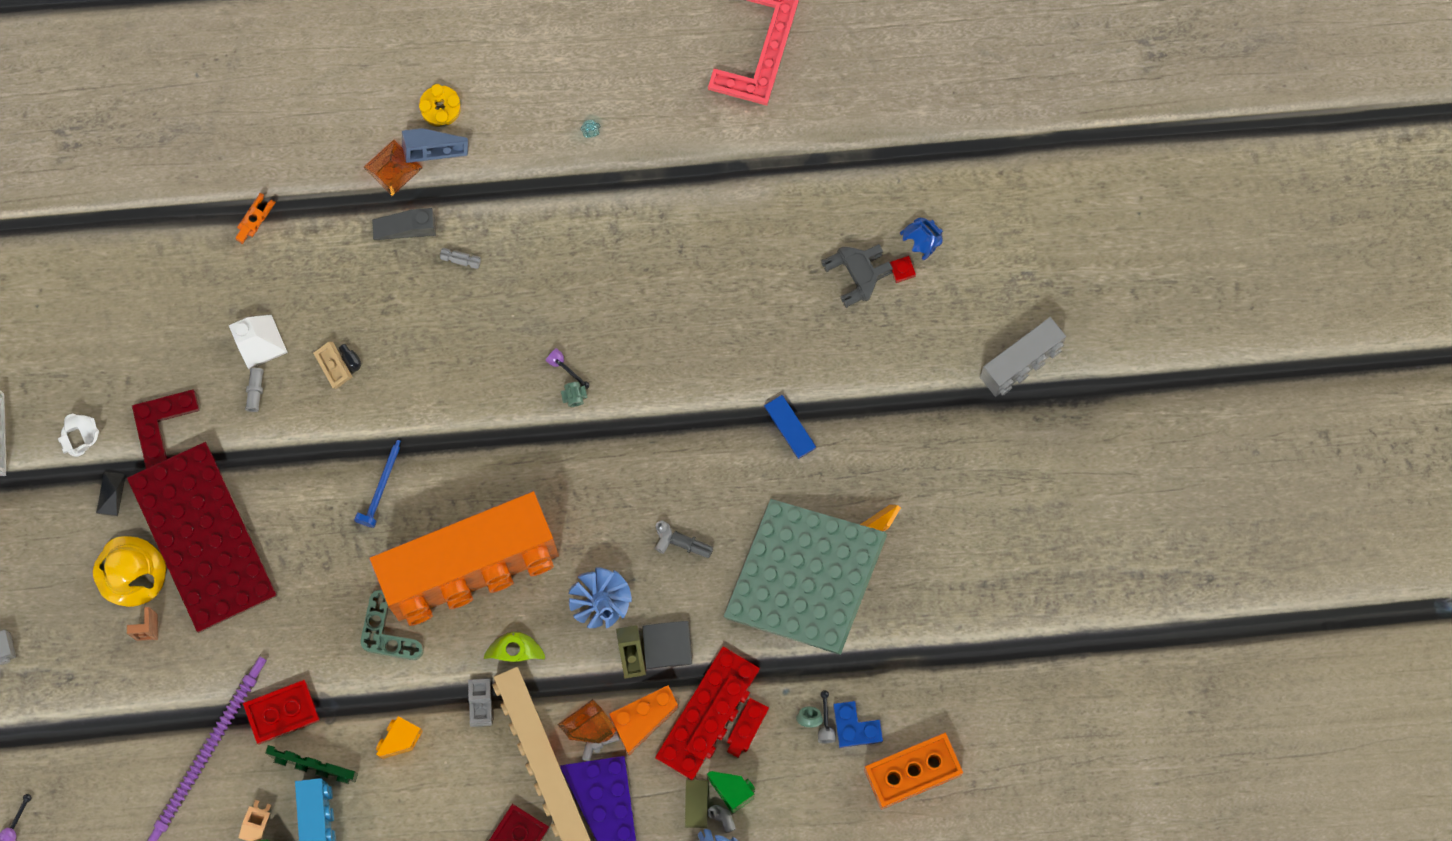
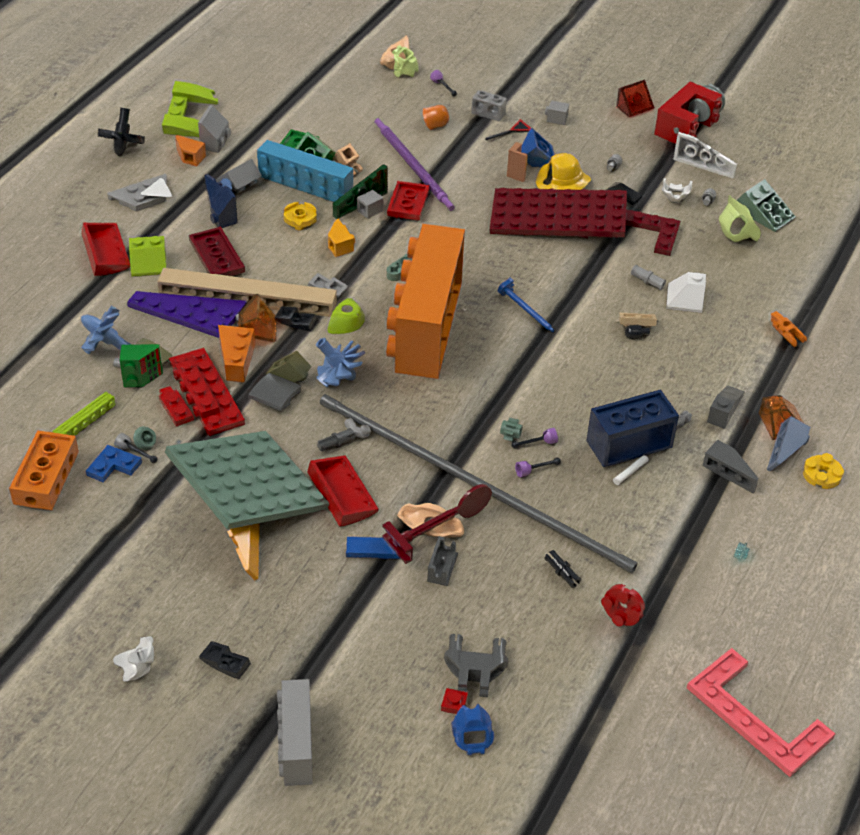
camera: 120 degrees right, 30 degrees down
(37, 733) = (488, 105): none -> light grey brick
(49, 330) = (766, 206): none -> sand green slope
(50, 679) = (520, 126): none -> black piece
(61, 532) = (614, 162): none -> light grey cylinder
(64, 398) = (708, 196): none -> light grey cylinder
(96, 624) = (537, 149): none -> blue slope
(99, 782) = (436, 116): none -> orange hair
(117, 338) = (737, 210): none -> yellowish green piece
(316, 746) = (370, 204): none -> light grey brick
(373, 819) = (300, 215): none -> yellow plate
(489, 184) = (729, 464): none -> dark grey slope
(514, 278) = (632, 428): none -> dark blue hose
(549, 268) = (630, 470): none -> white piece
(550, 700) = (291, 317): none -> black slope
(612, 357) = (523, 468): none -> medium lavender hinge
(646, 576) = (619, 559): none -> dark grey piece
(710, 260) = (562, 568): none -> black pin
(727, 188) = (620, 615): none -> red plate
(732, 383) = (416, 515): none -> light nougat piece
(746, 499) = (342, 489): none -> red slope
(772, 361) = (442, 562): none -> dark grey hinge
(780, 402) = (469, 505): none -> dark red piece
(823, 798) = (87, 415): none -> lime piece
(989, 469) = (223, 660): none -> black slope
(1044, 533) = (136, 661): none -> white helmet

